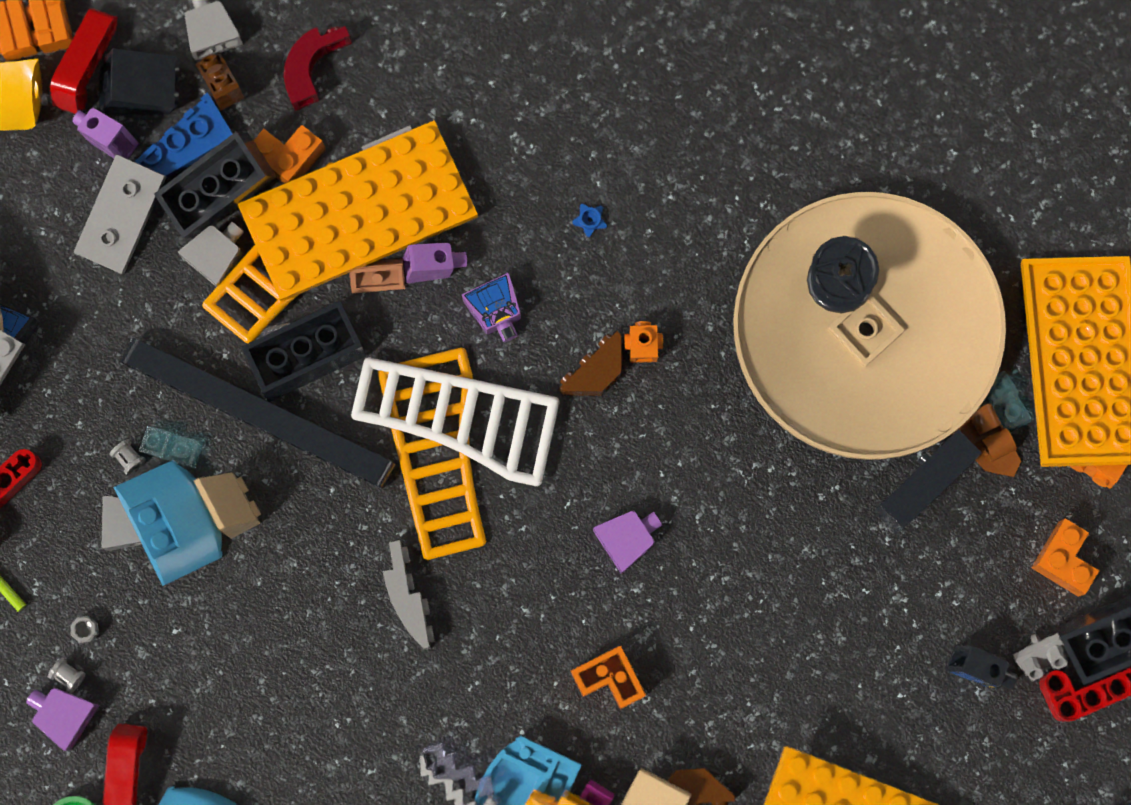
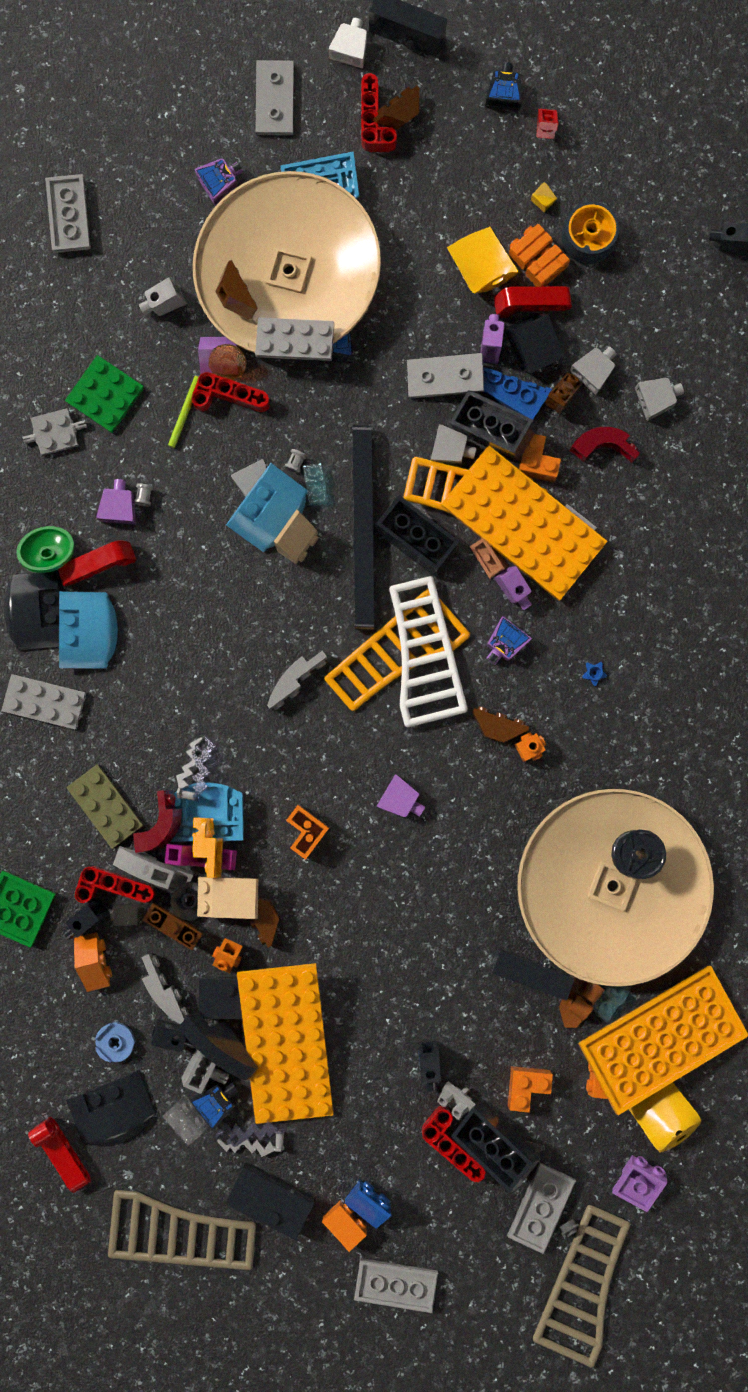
camera: 65 degrees right, 5 degrees up
(84, 629) = (176, 491): light grey tile -> none

